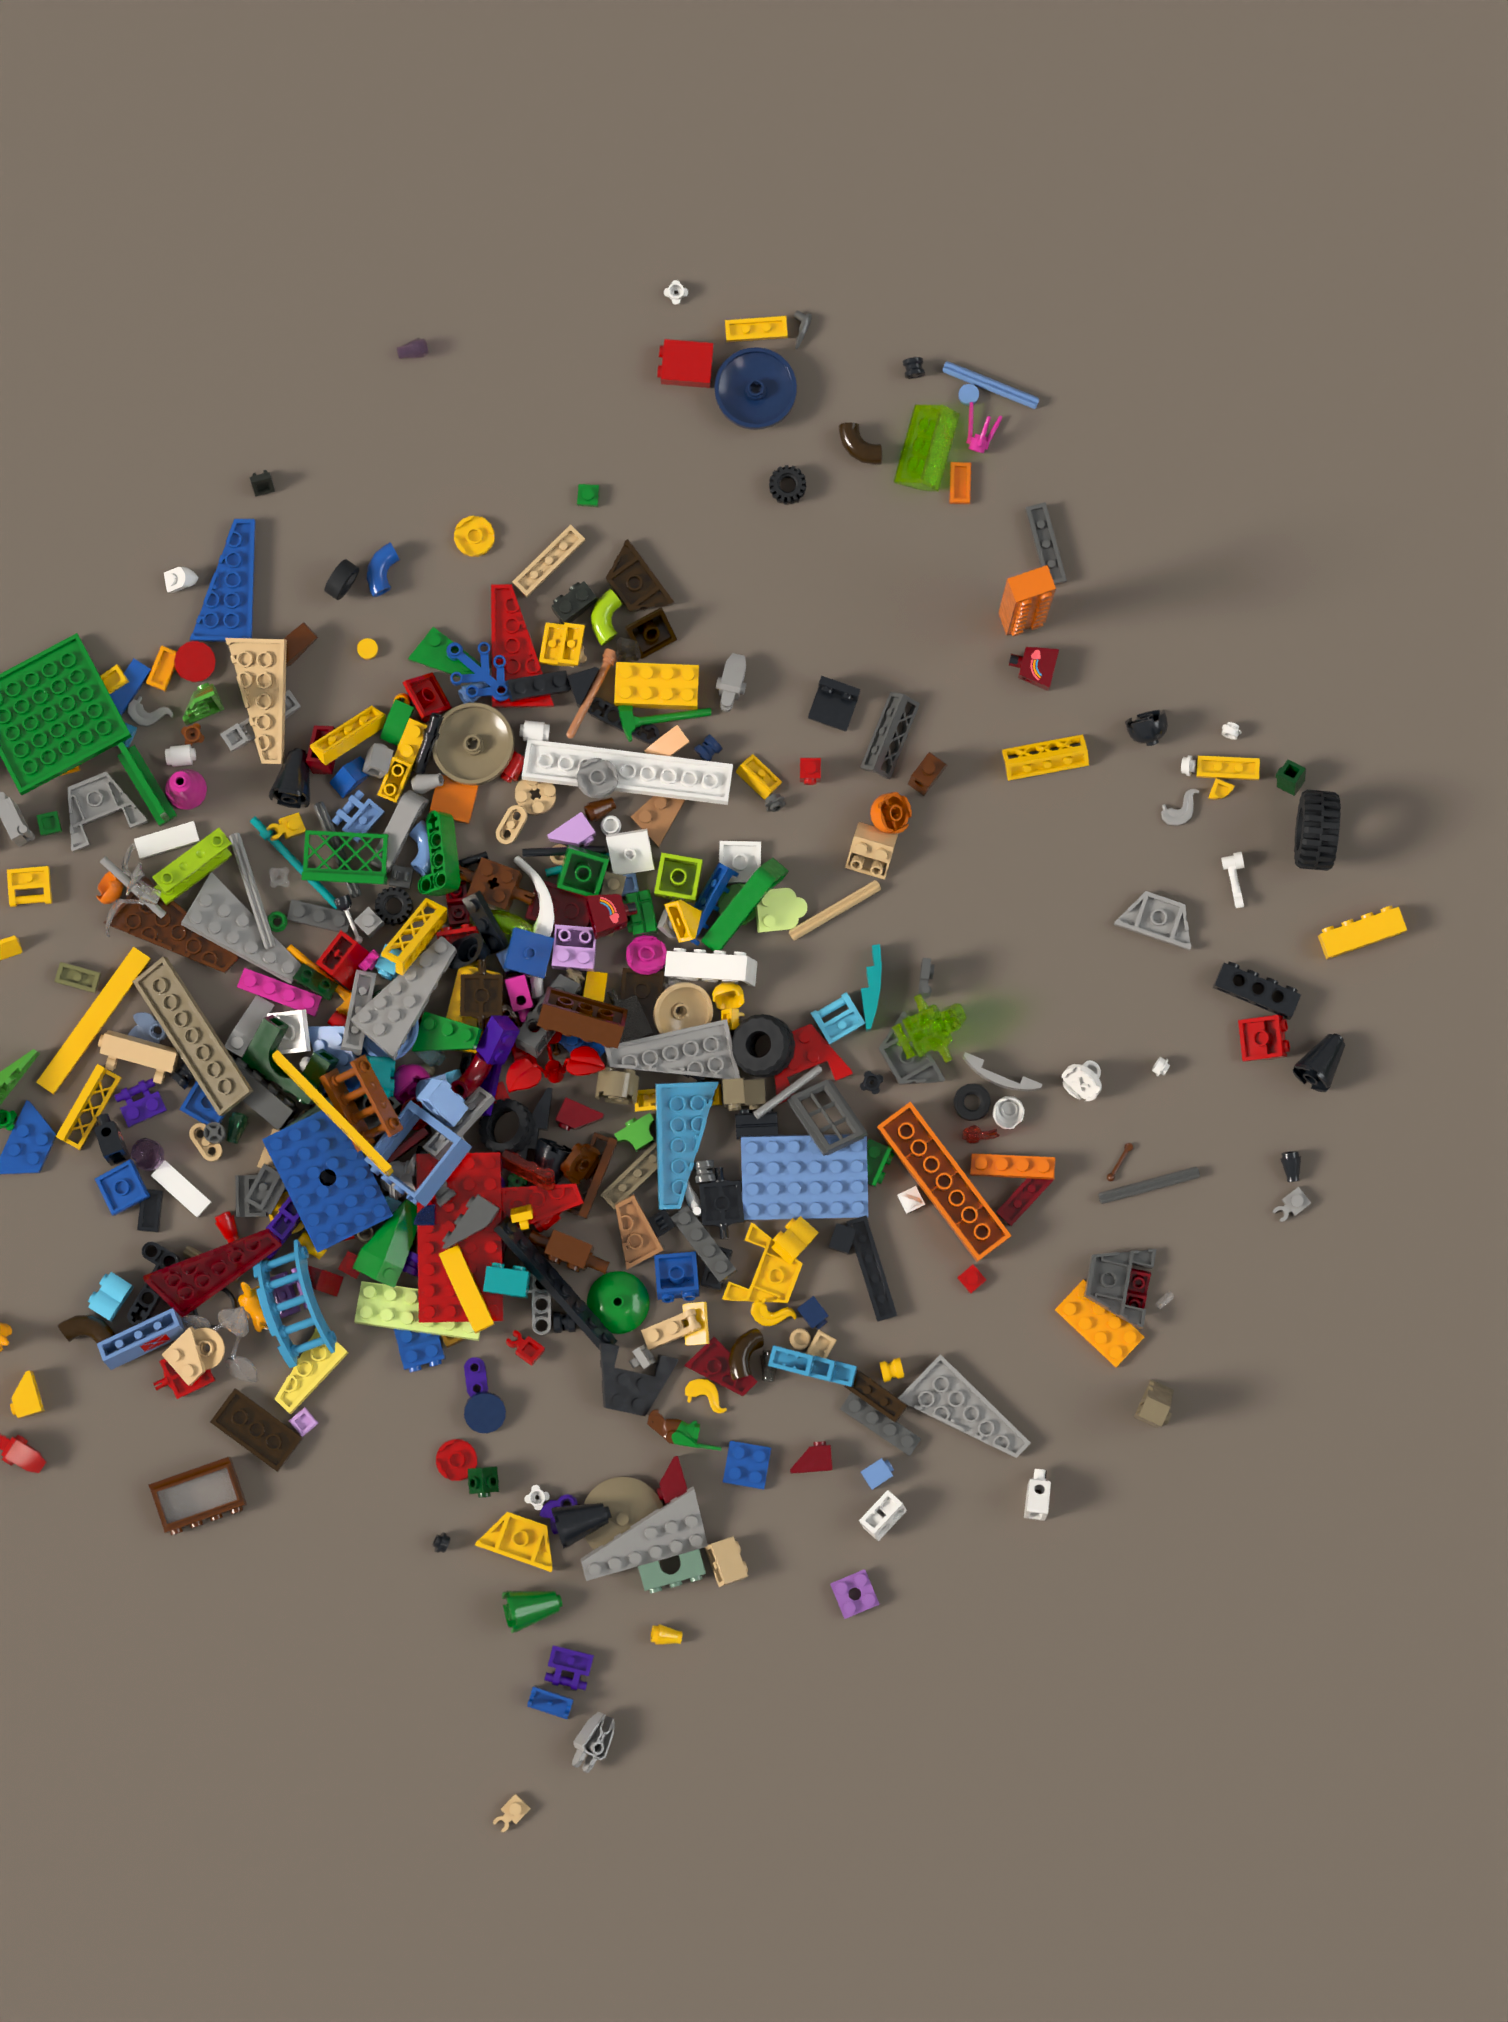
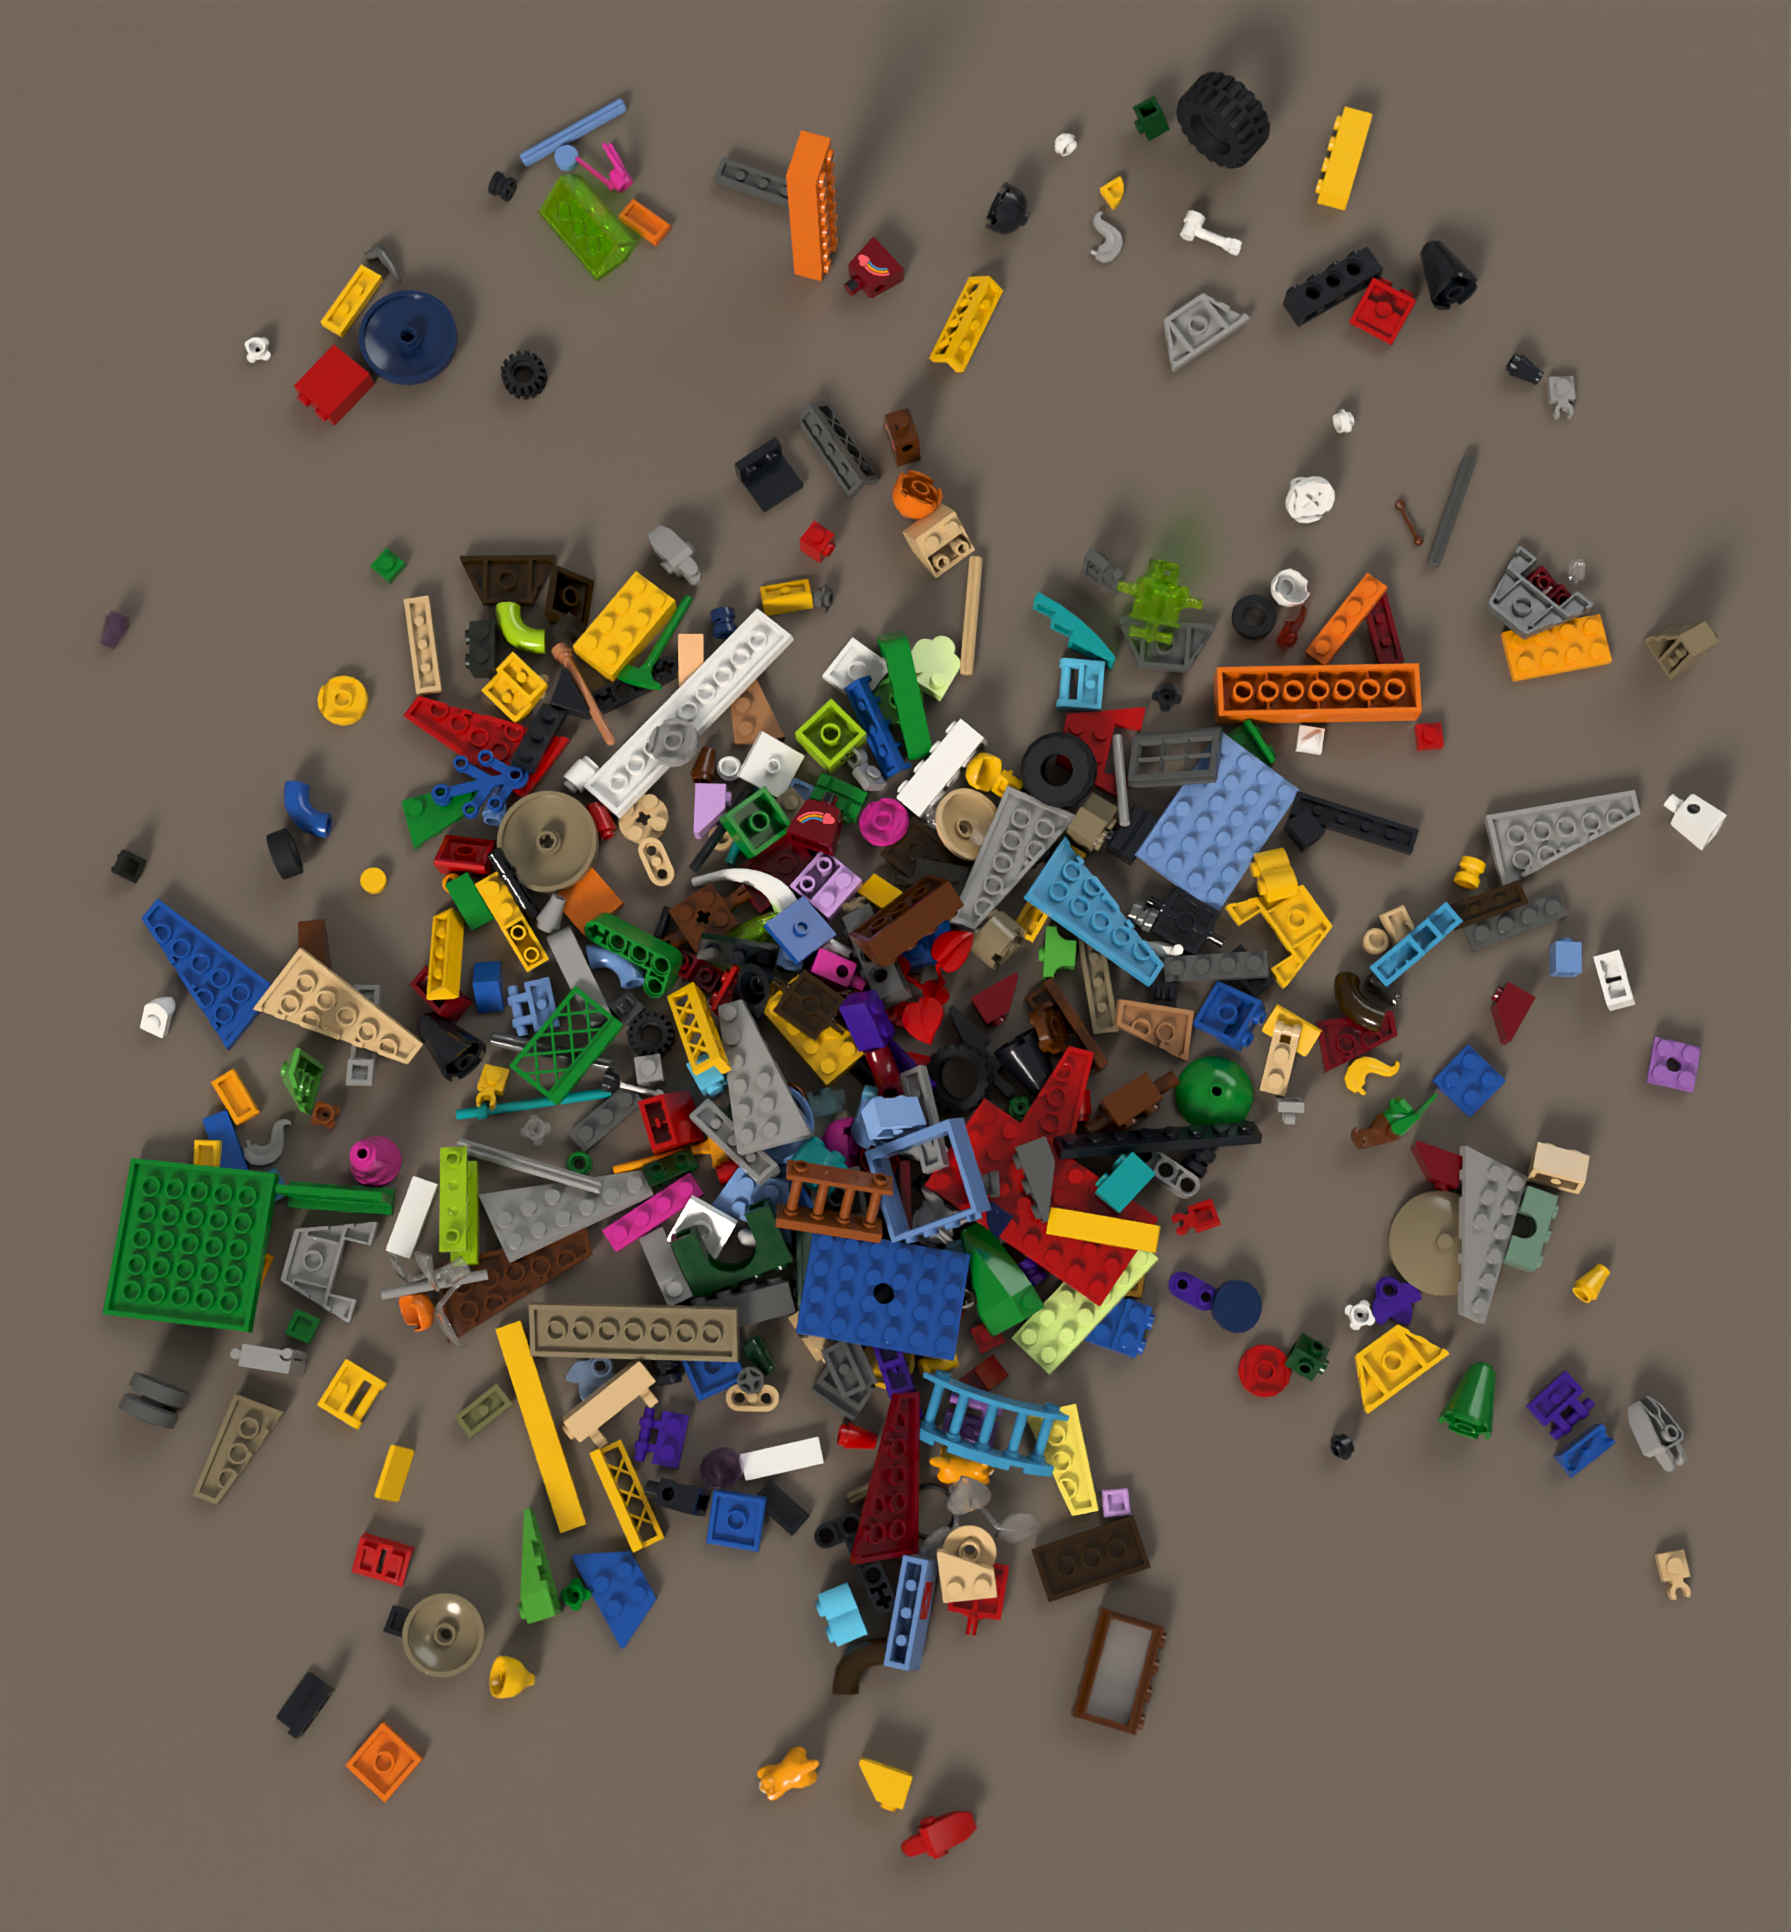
camera: 55 degrees left, 5 degrees down
(180, 755) = (336, 1141): white brick -> none
(194, 661) = (253, 1059): red tile -> none
(332, 1113) = (823, 1238): yellow tile -> none
(369, 961) = (690, 1094): dark pink plate -> none
(377, 760) = (493, 946): light grey brick -> none
(445, 1034) = (823, 1068): green wing -> none
(522, 1215) = (1065, 1121): yellow tile -> none
(528, 1170) = (1023, 1083): clear red plate -> none
(579, 1521) = (1419, 1286): black cone -> none
(631, 1390) = (1314, 1142): black wing -> none
(684, 919) = (877, 758): yellow slope -> none
(766, 1318) = (1330, 959): yellow piece -> none
(813, 1313) = (1359, 909): dark blue brick -> none
(857, 447) = (537, 286): dark brown cylinder -> none
(976, 1063) = (1222, 586): light grey slope -> none
(1188, 765) = (1070, 202): white plate -> none
(1228, 767) = (1098, 170): yellow plate -> none

